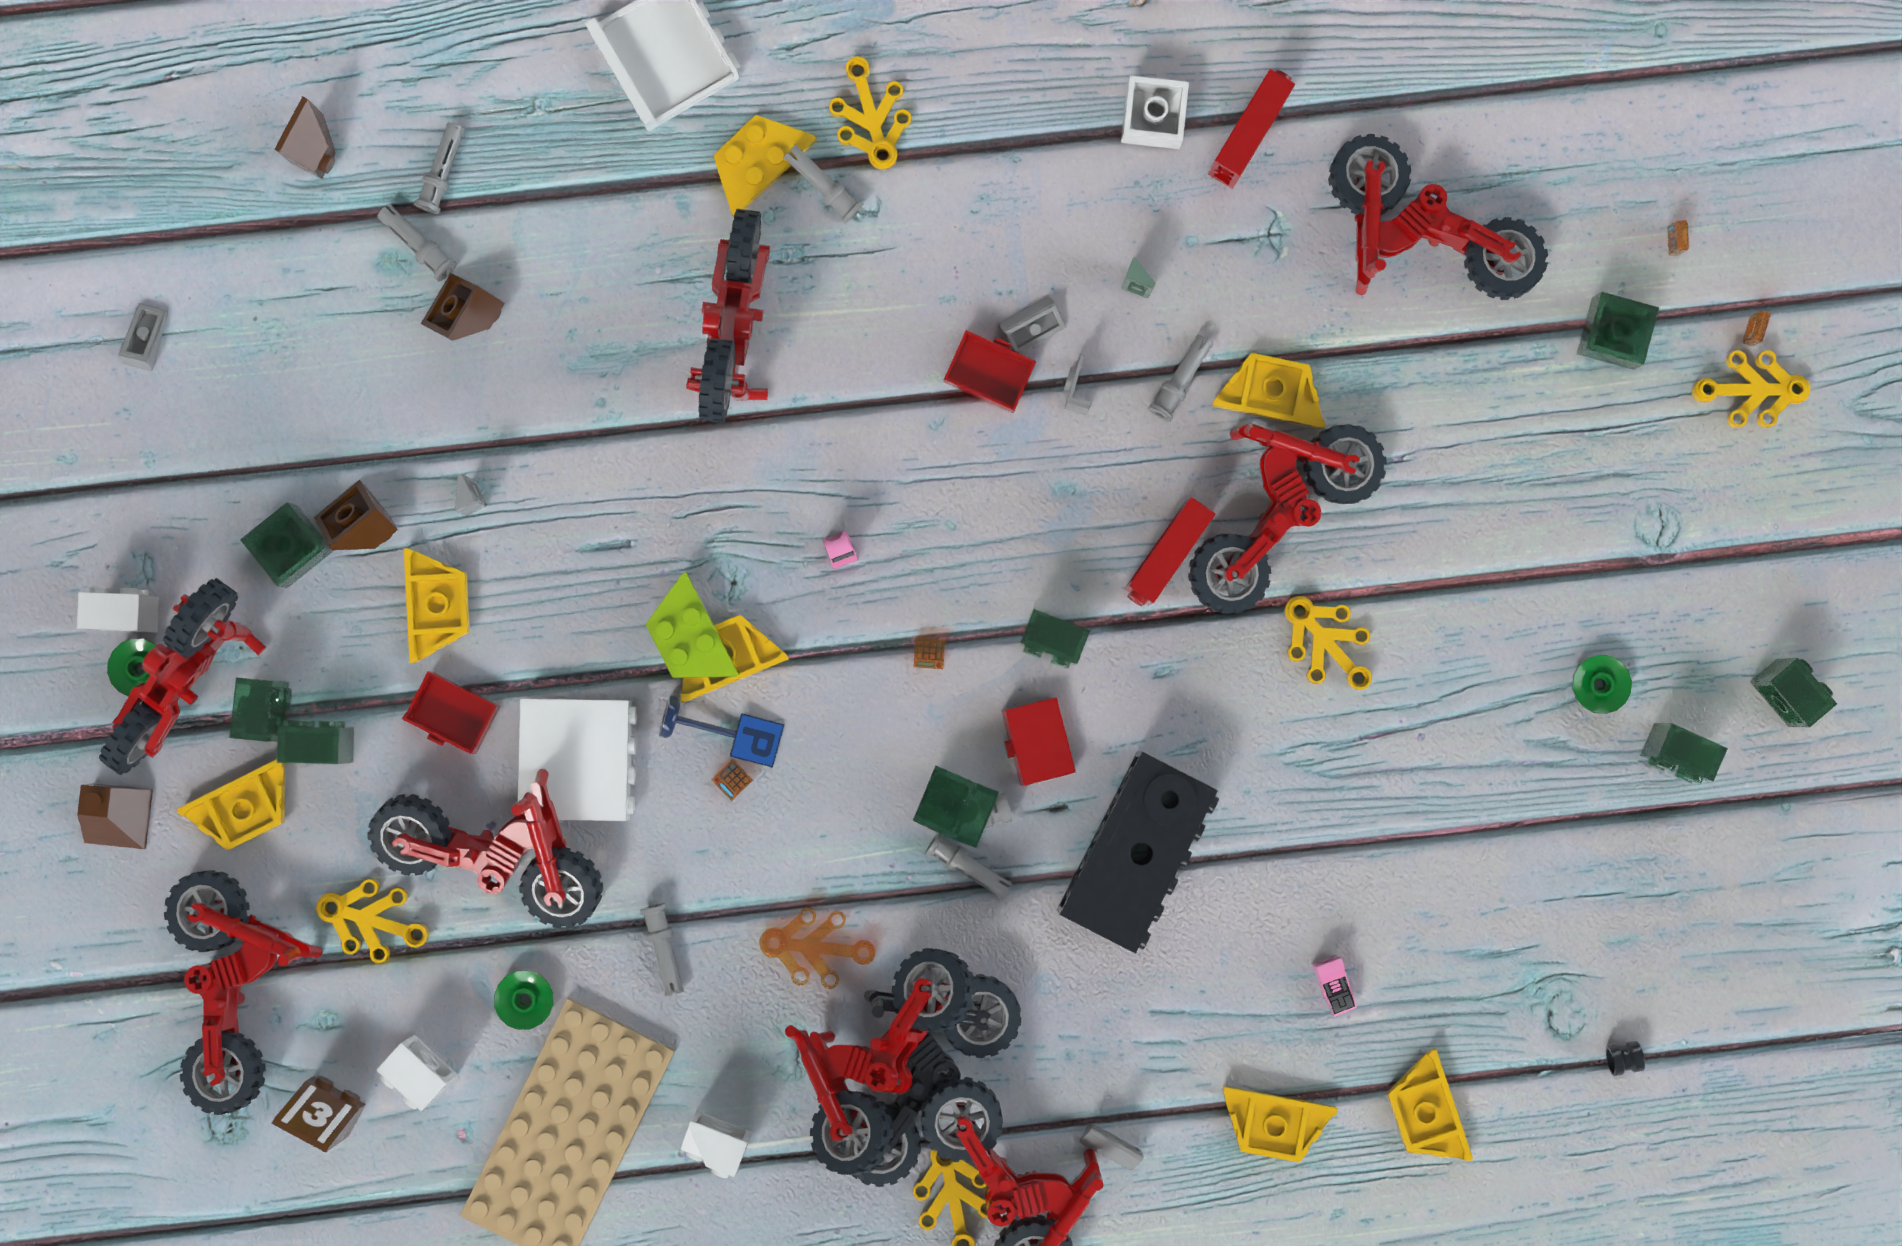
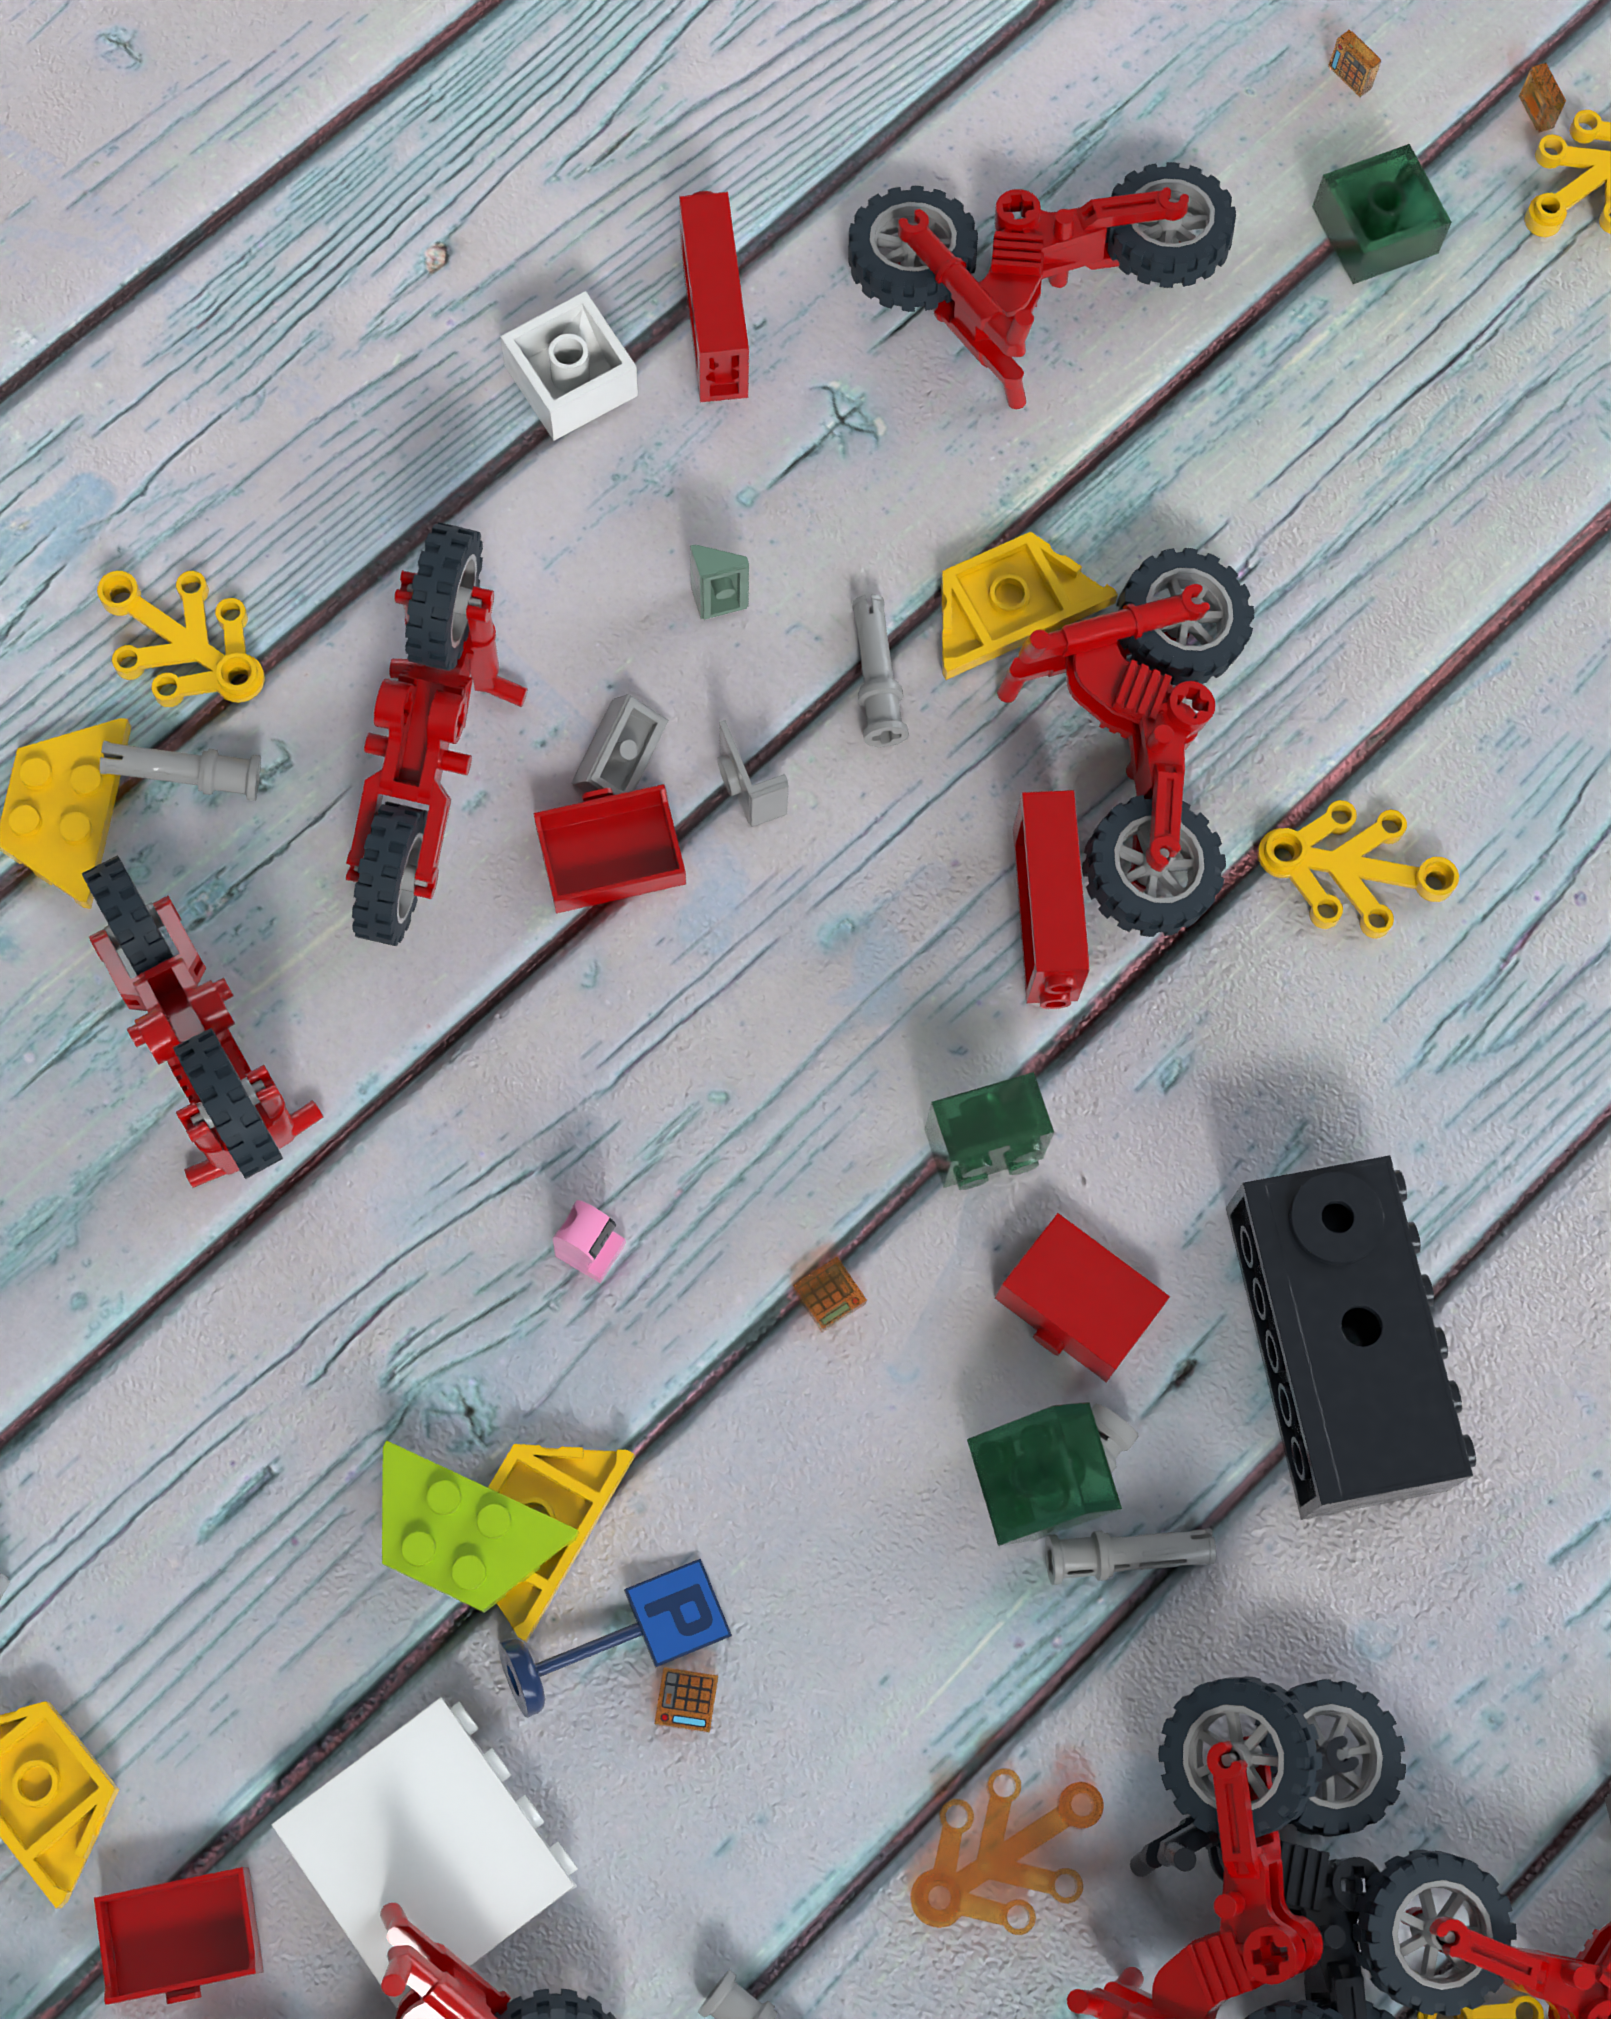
camera: 35 degrees left, 15 degrees down
(936, 258) = (425, 710): none -> piece

